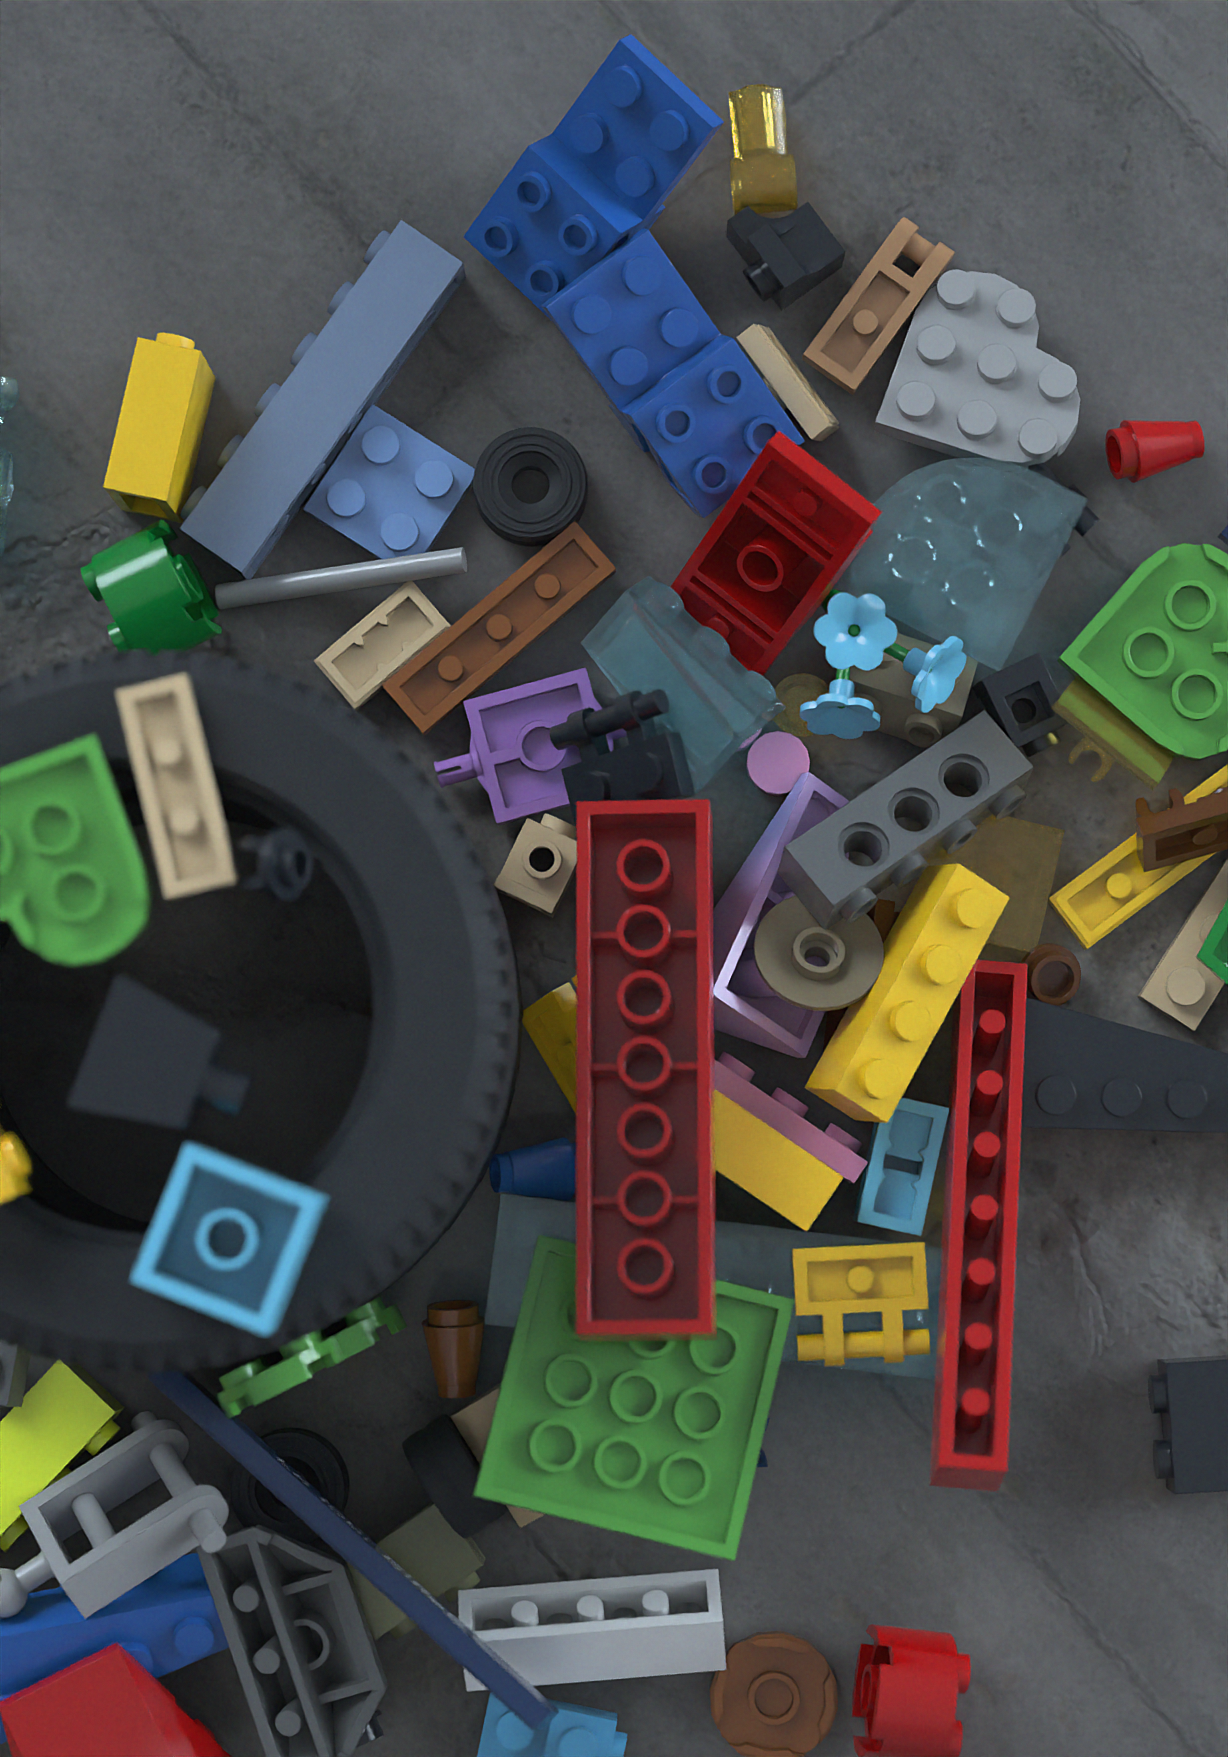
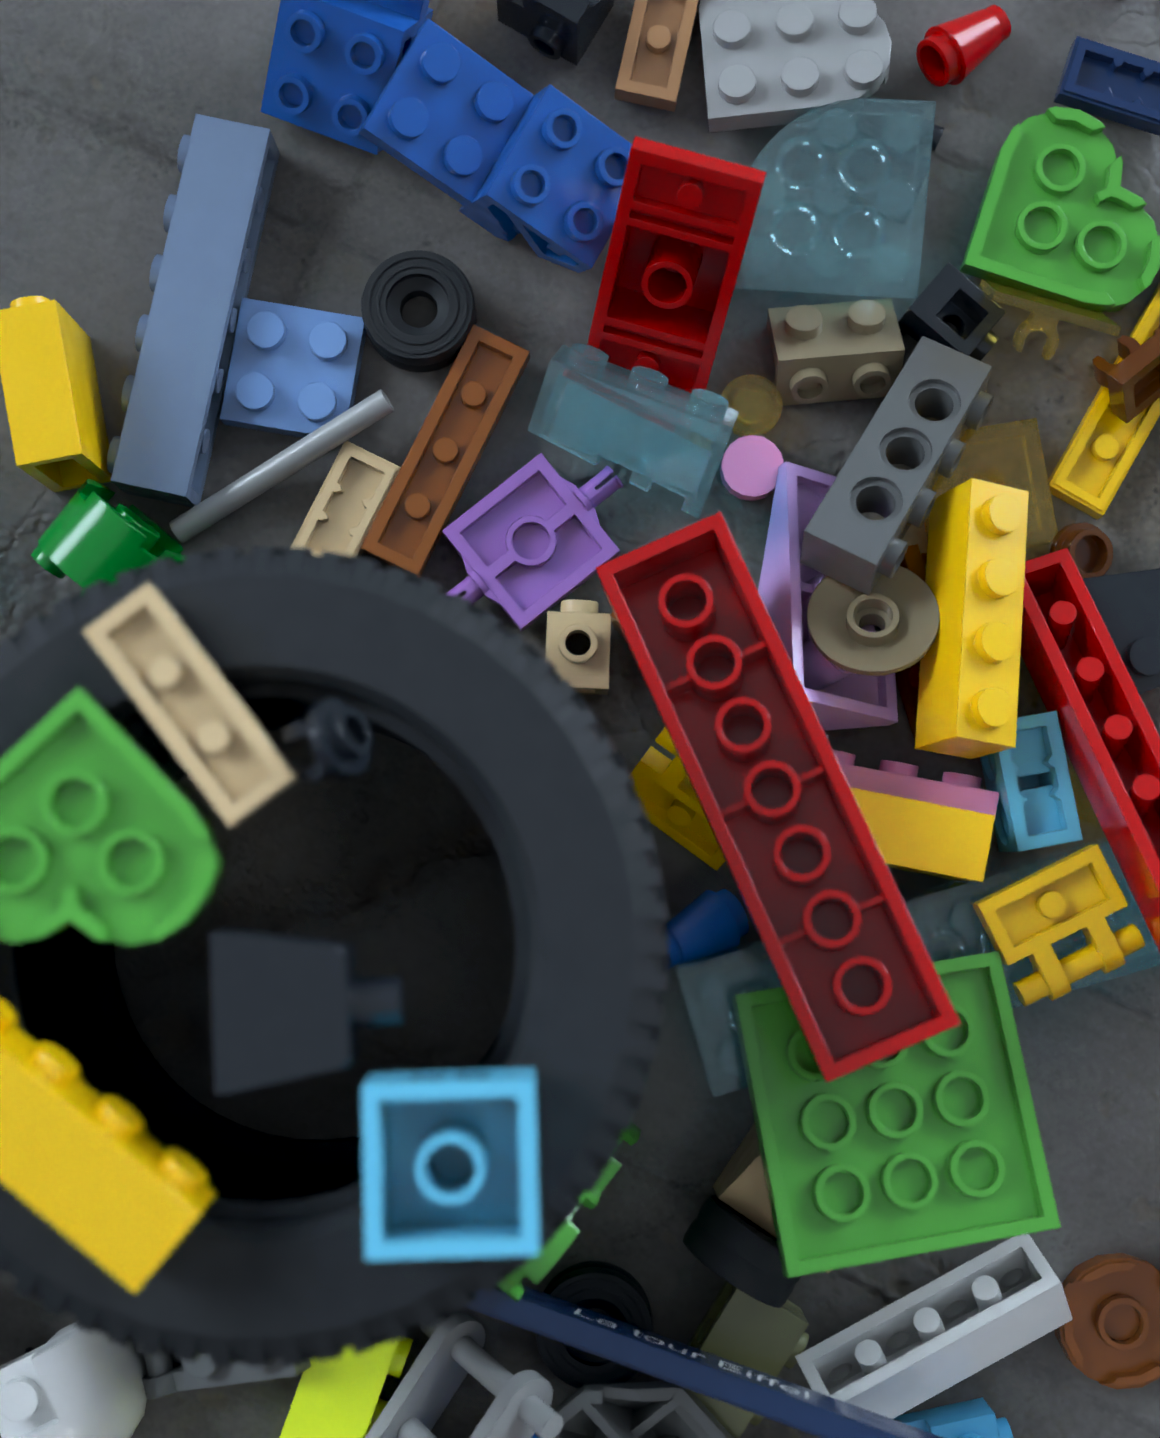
camera: 35 degrees left, 0 degrees up
(454, 1345) = (689, 1125): dark orange cone -> none
(644, 770) = (641, 514): black plate -> none
(788, 382) = (610, 113): tan plate -> none
(858, 635) = (785, 305): medium azure plant -> none

